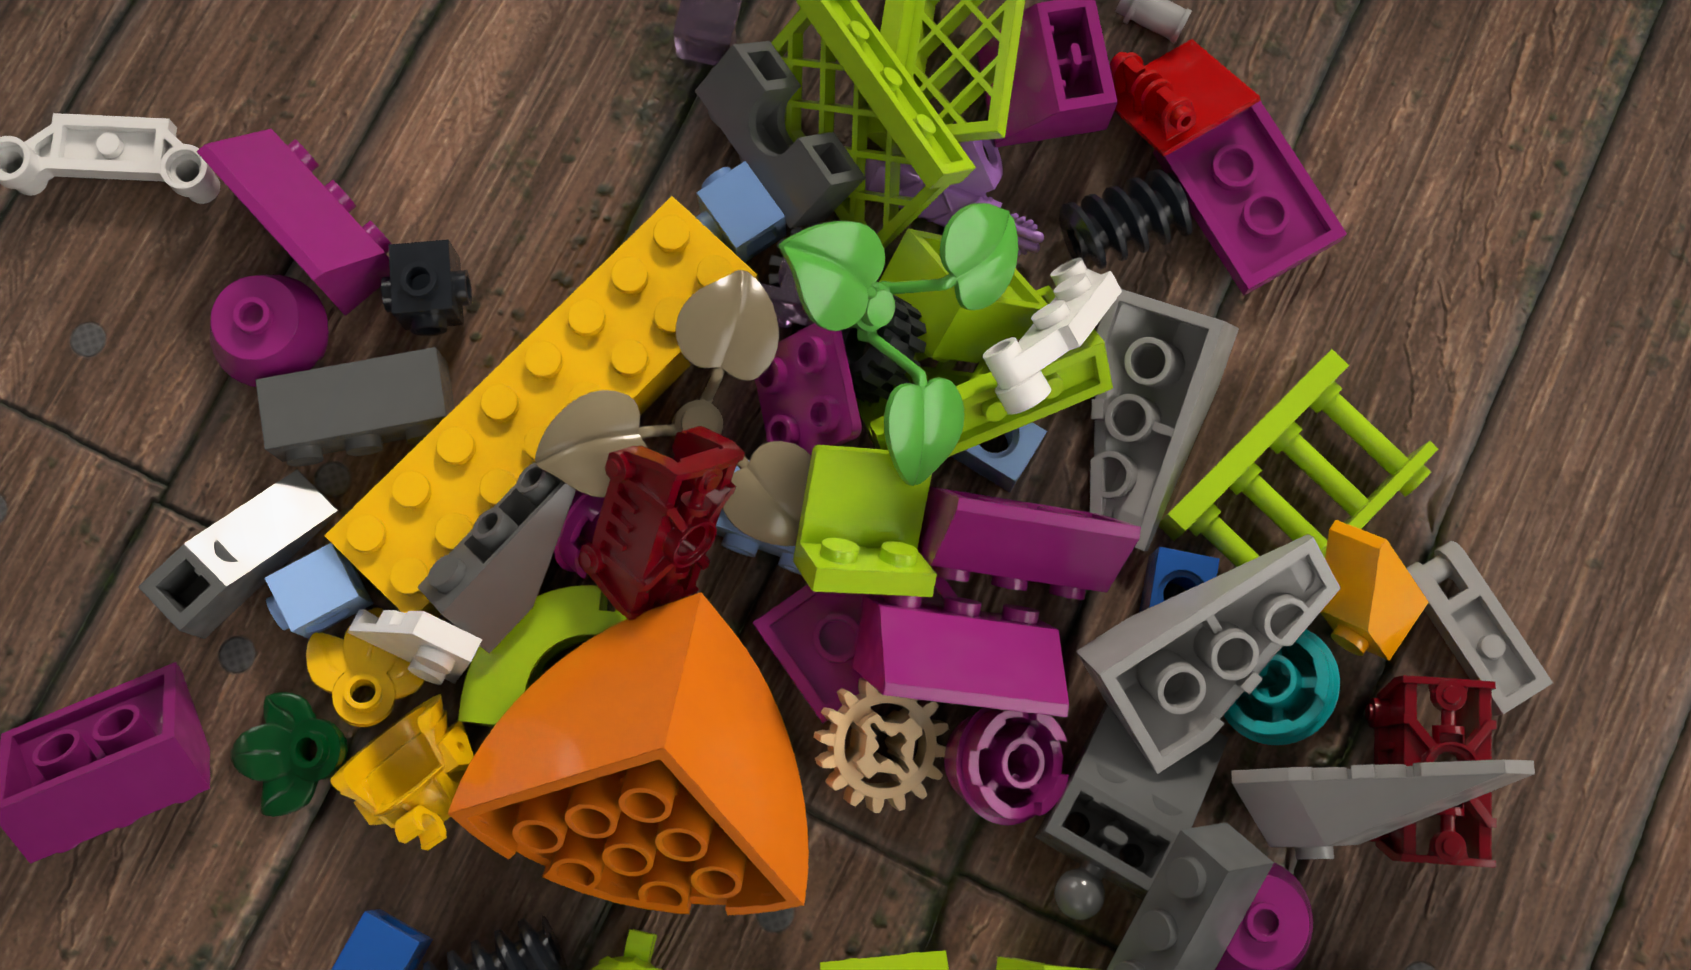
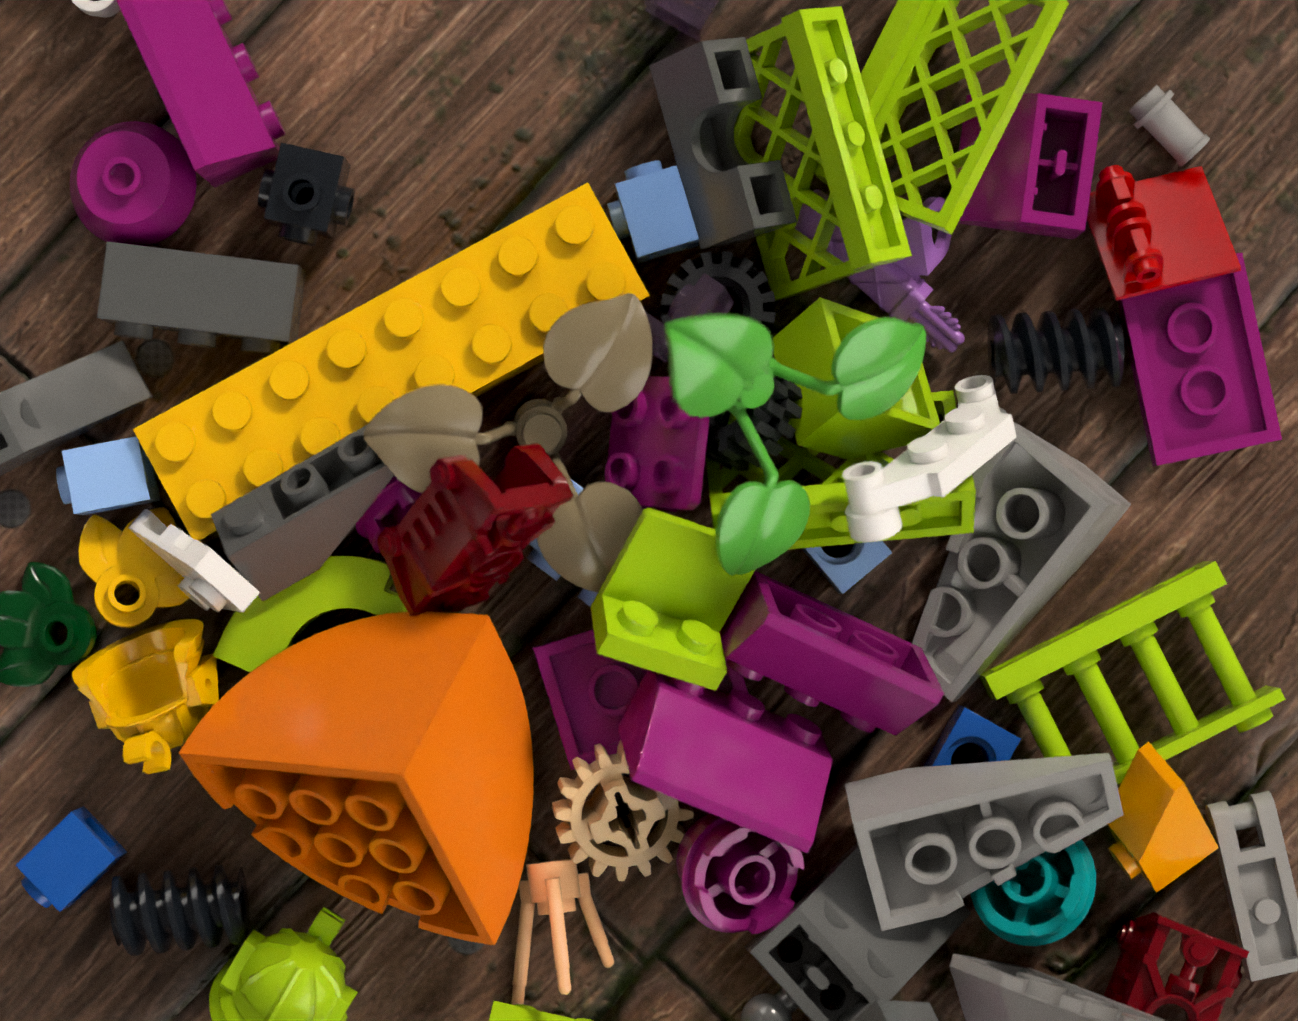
camera: 25 degrees right, 10 degrees up
(842, 839) = (554, 890): none -> light nougat plant

